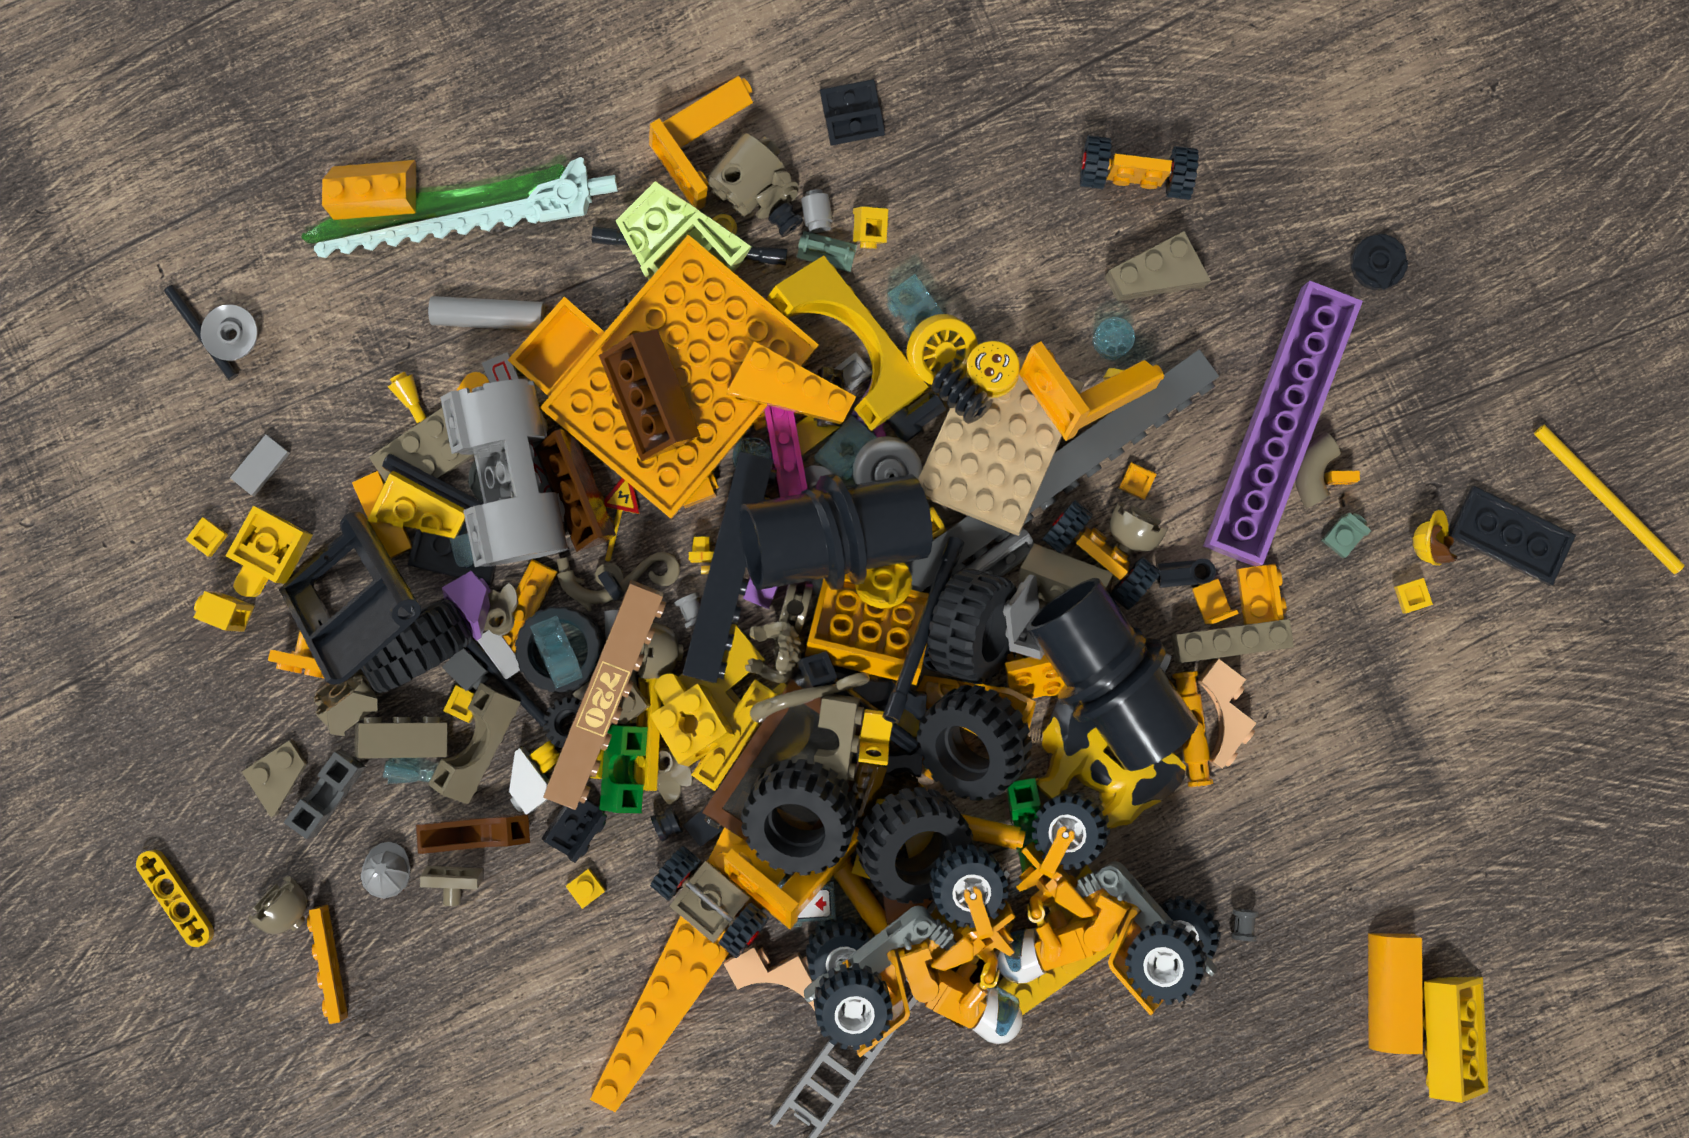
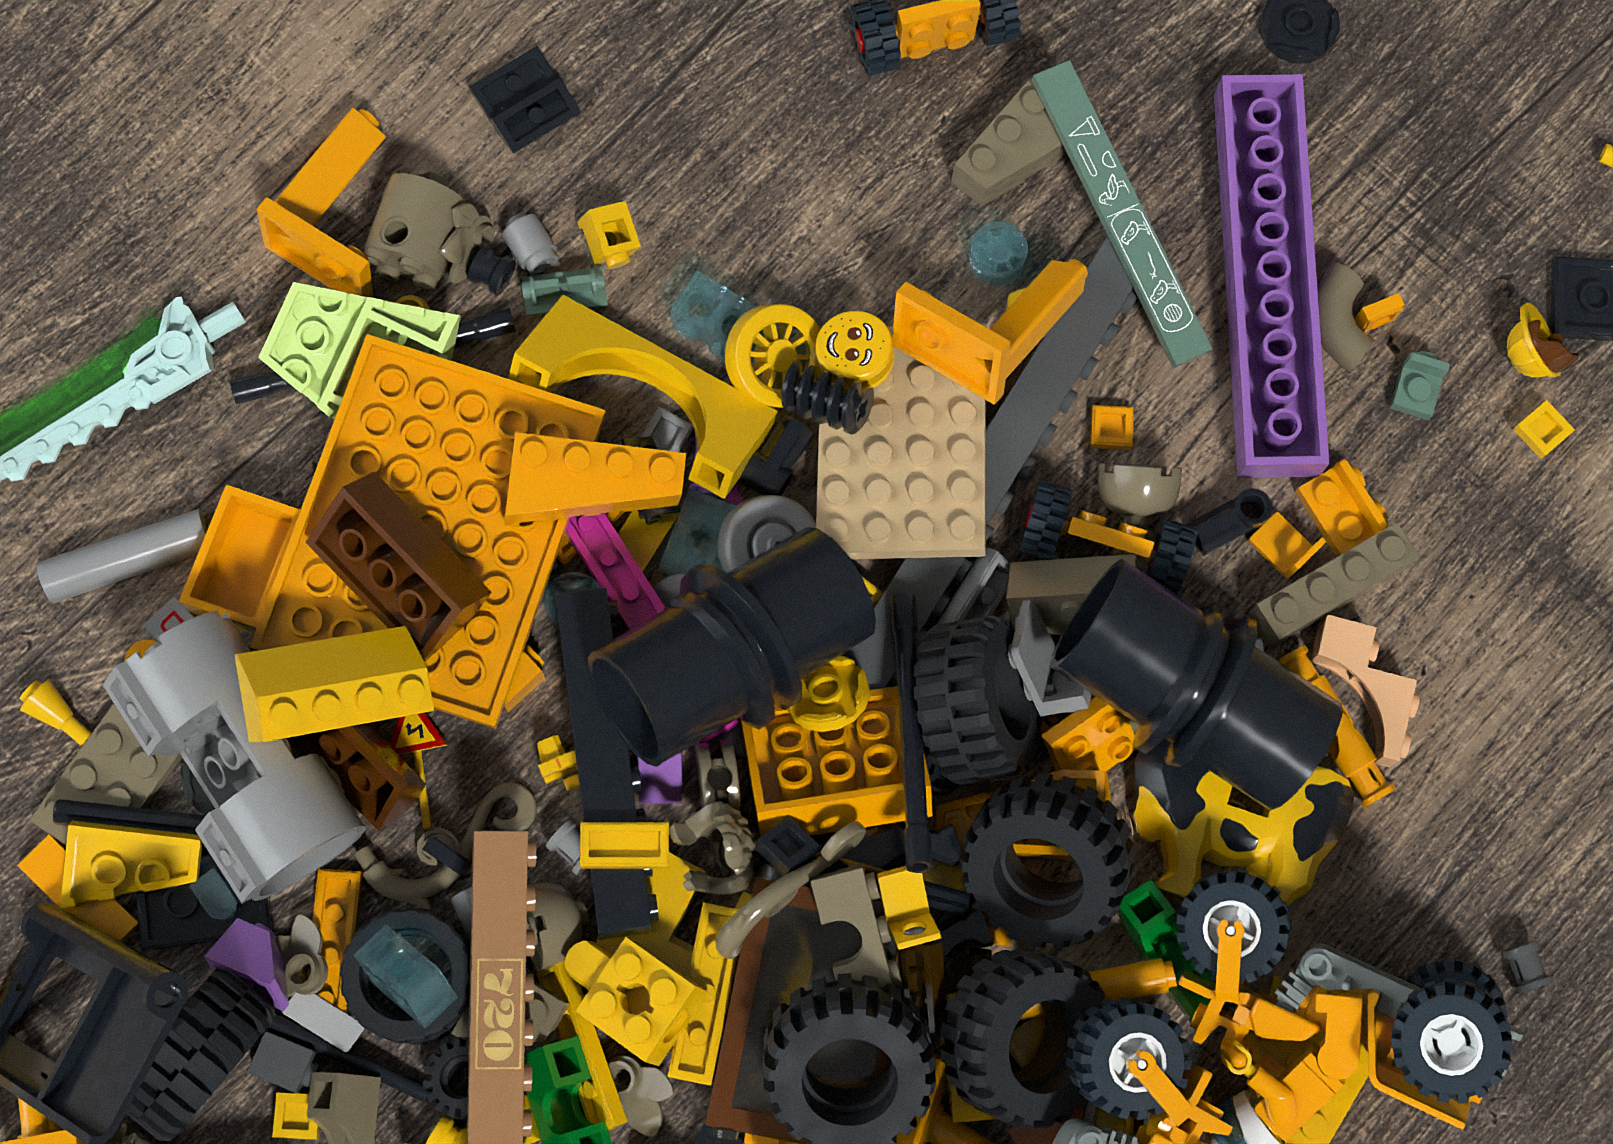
camera: 25 degrees left, 10 degrees down
(579, 456) = (332, 684): none -> yellow slope
(719, 627) = (624, 845): none -> yellow tile
(1202, 346) = (1121, 214): none -> sand green tile

